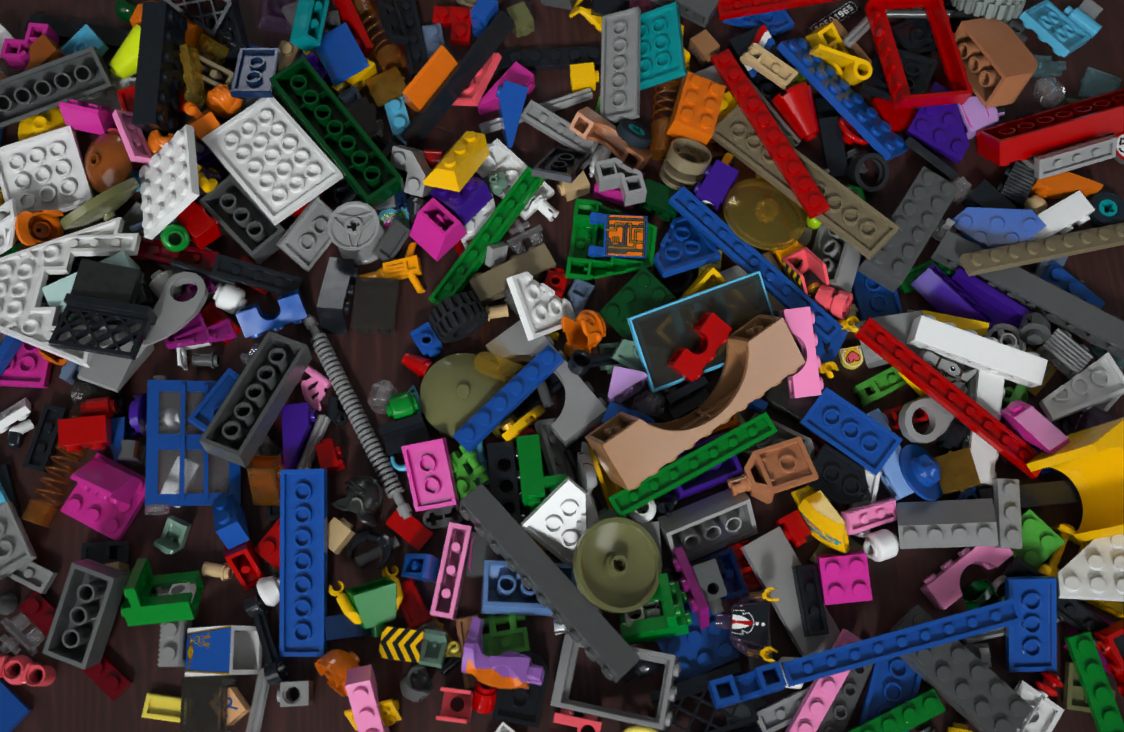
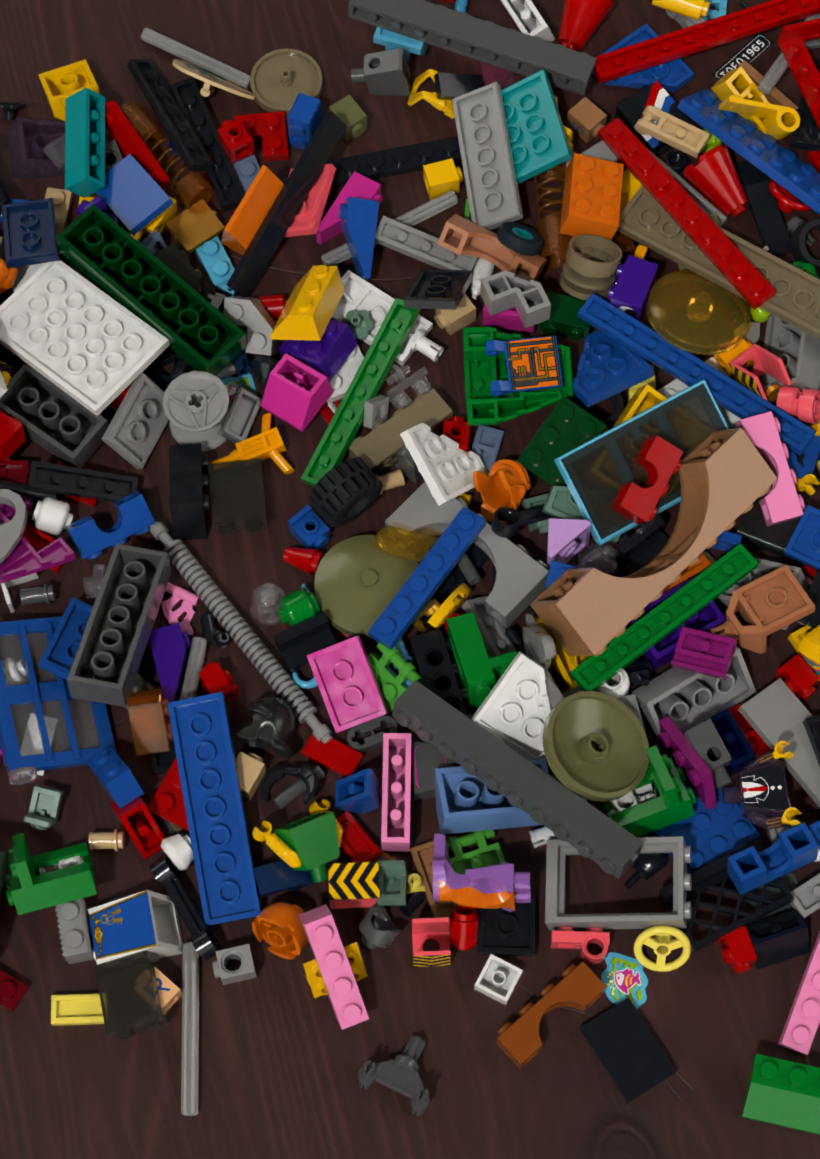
camera: 10 degrees left, 5 degrees down
(428, 21) = (235, 140): none -> red brick
(720, 499) = (704, 653): none -> magenta plate

